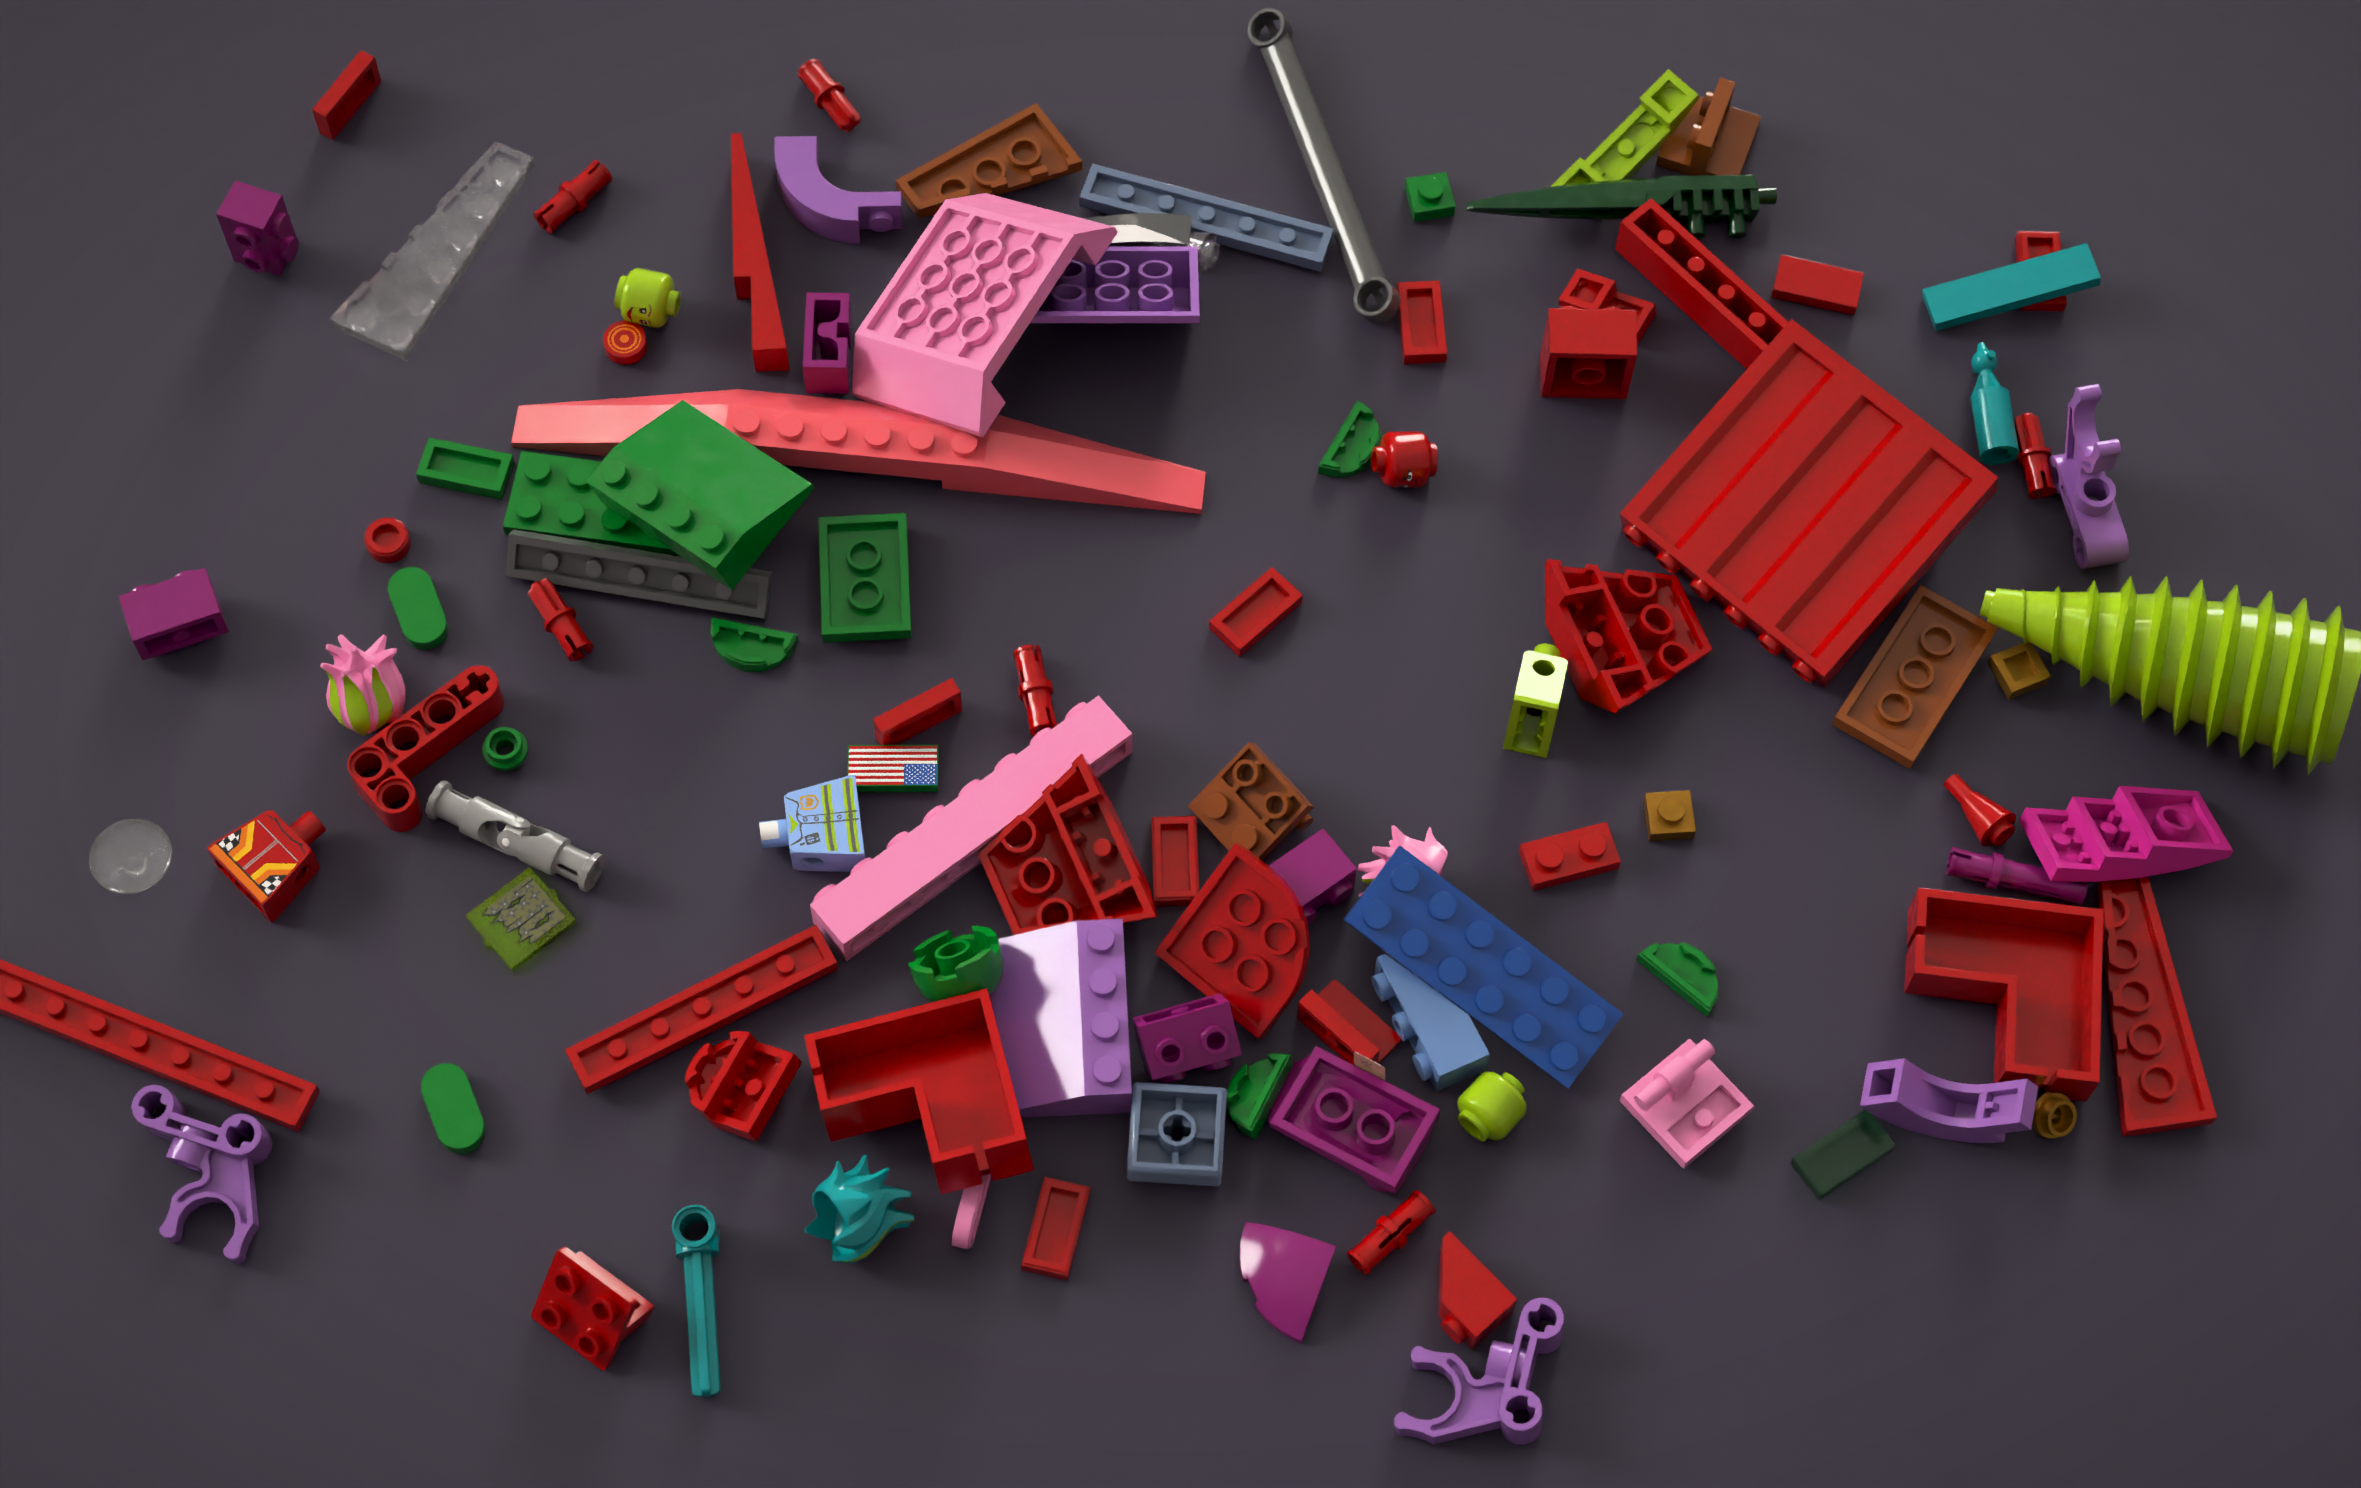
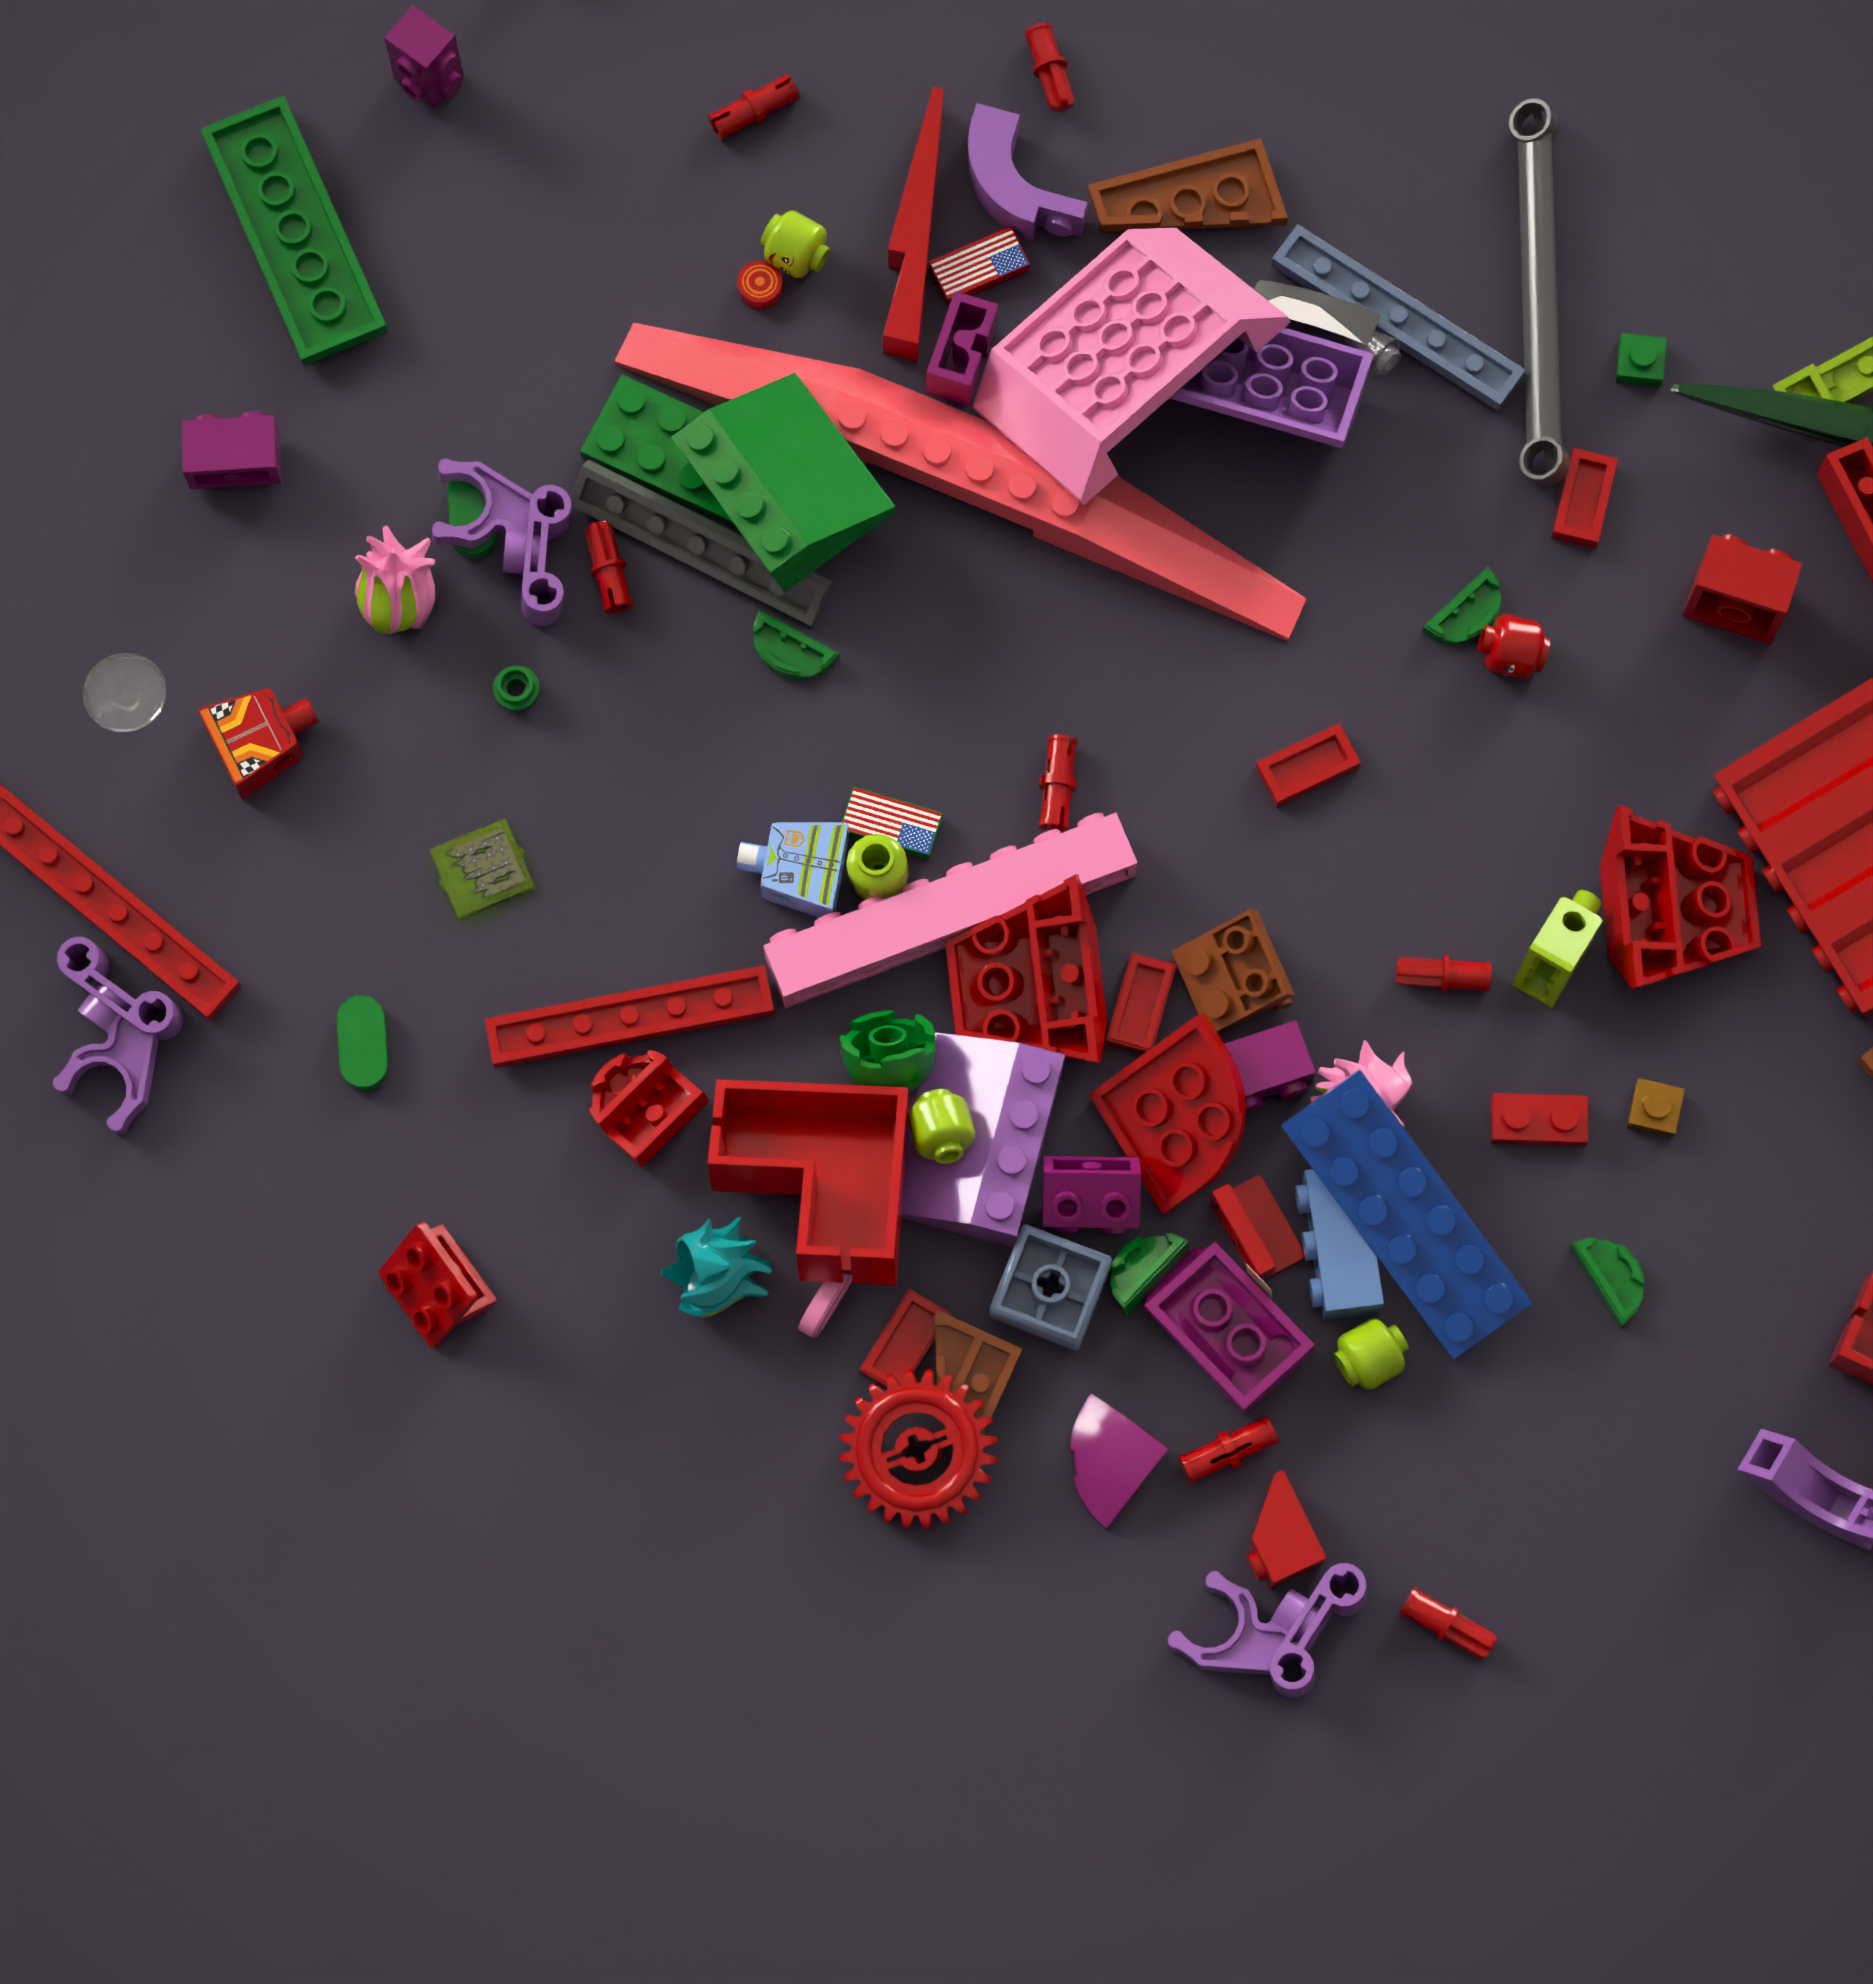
camera: 20 degrees right, 10 degrees up
(178, 410) = (294, 230): none -> green plate
(387, 540) = (463, 430): red tile -> none
(418, 279) = (571, 154): clear wing -> none
(432, 743) = (446, 661): red beam -> none
(465, 468) = (561, 375): green tile -> none
(466, 600) = (525, 529): none -> medium lavender piece
(520, 838) = (503, 787): light grey piece -> none
(700, 1298) = (541, 1308): teal axle -> none
(819, 272) = (980, 265): none -> tile
(864, 577) = (924, 612): green plate -> none
(893, 806) = (877, 867): none -> lime head
(918, 714) = (932, 775): red tile -> none
(1028, 1014) = (941, 1126): none -> lime head
(1065, 1349) = (962, 1431): none -> red gear
(1127, 1235) = (973, 1360): none -> dark orange wing
(1440, 754) = (1443, 973): none -> red axle
(1598, 292) = (1779, 526): red slope -> none
(1648, 1328) = (1448, 1624): none -> red axle
(1687, 1102) = (1566, 1410): bright pink plate -> none
(1842, 1154) = (1705, 1510): clear green tile -> none

